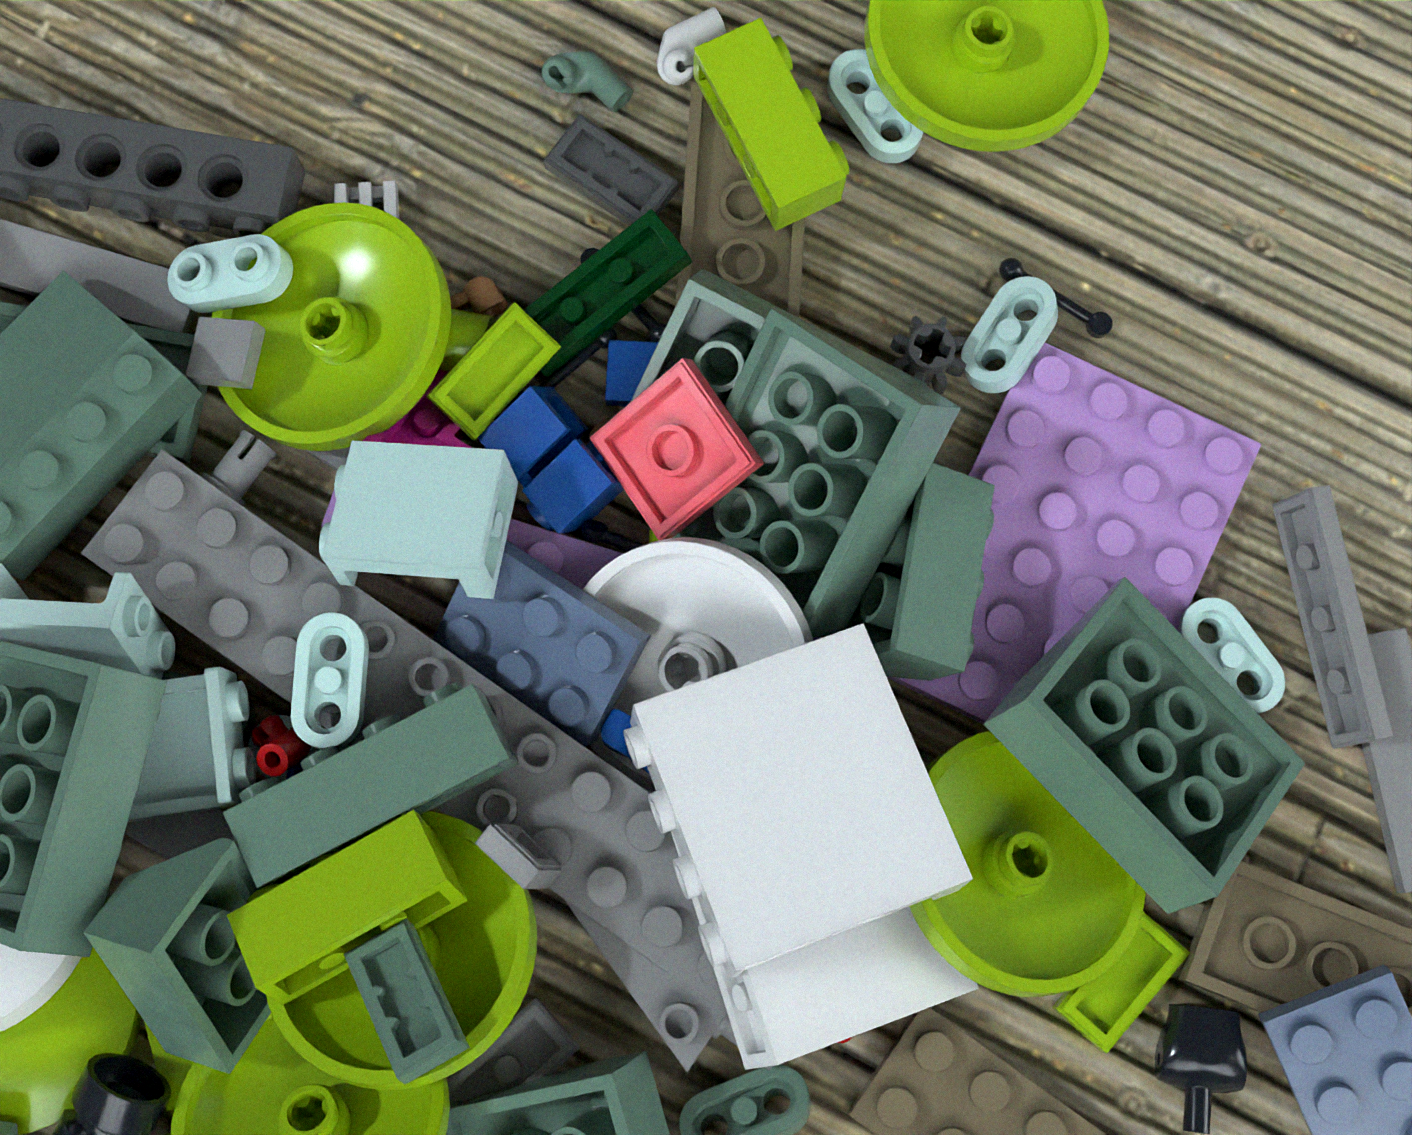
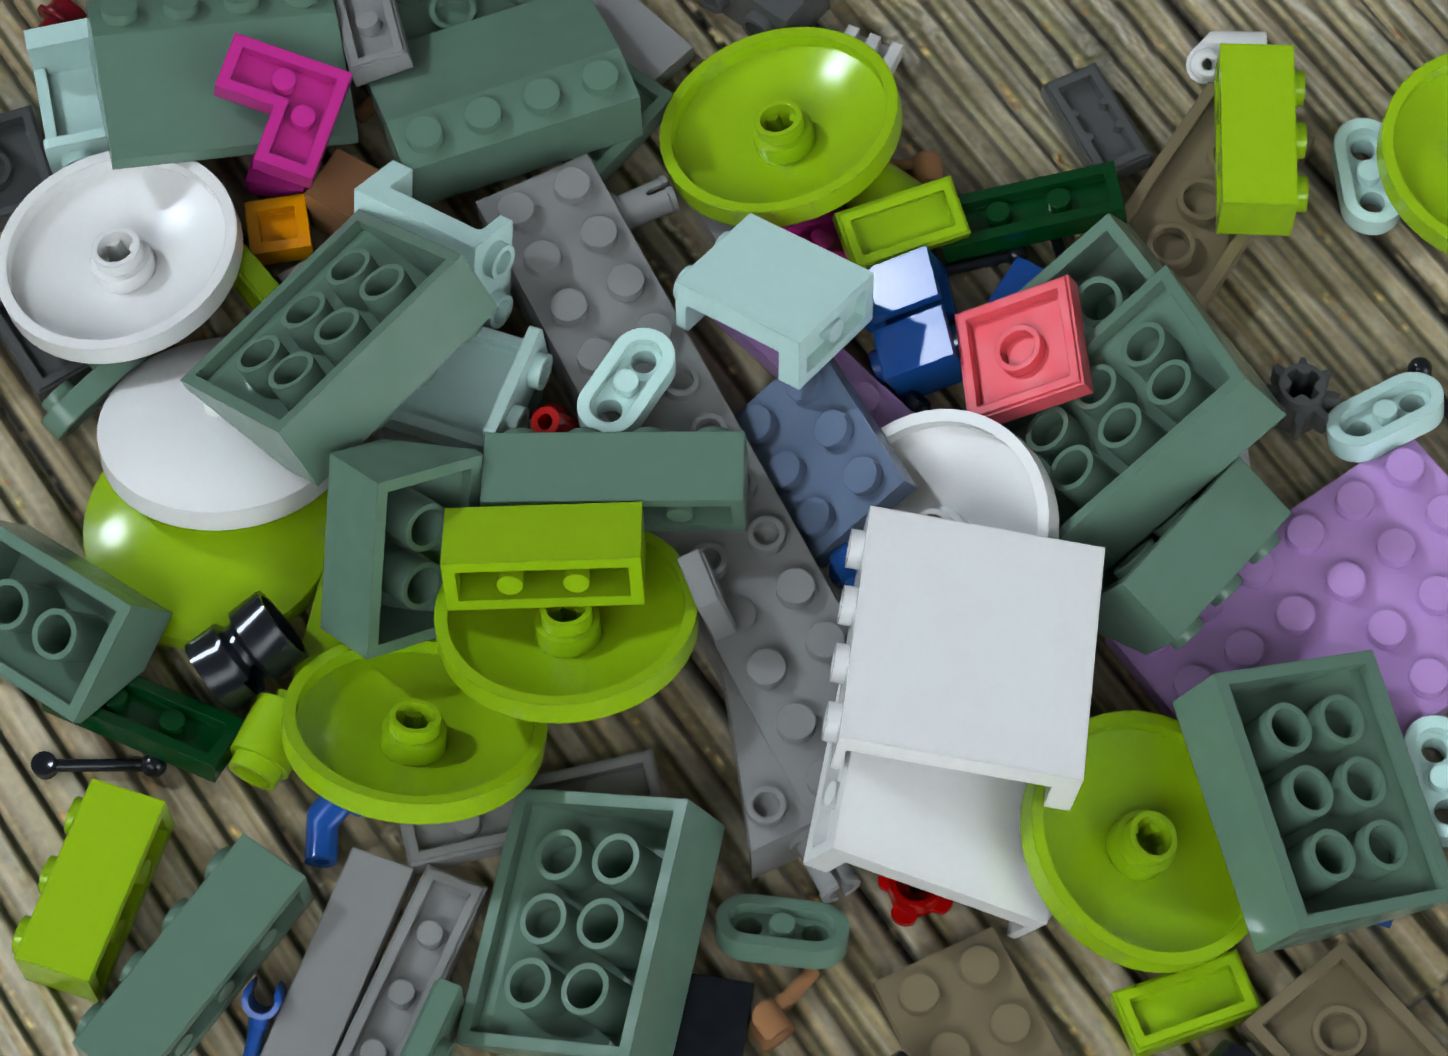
camera: 35 degrees right, 15 degrees down
(224, 275) = (720, 49): light aqua plate -> none
(225, 352) = (682, 107): light grey tile -> none
(406, 1001) = (553, 639): sand green plate -> none
(586, 73) = (1120, 36): sand green arm -> none

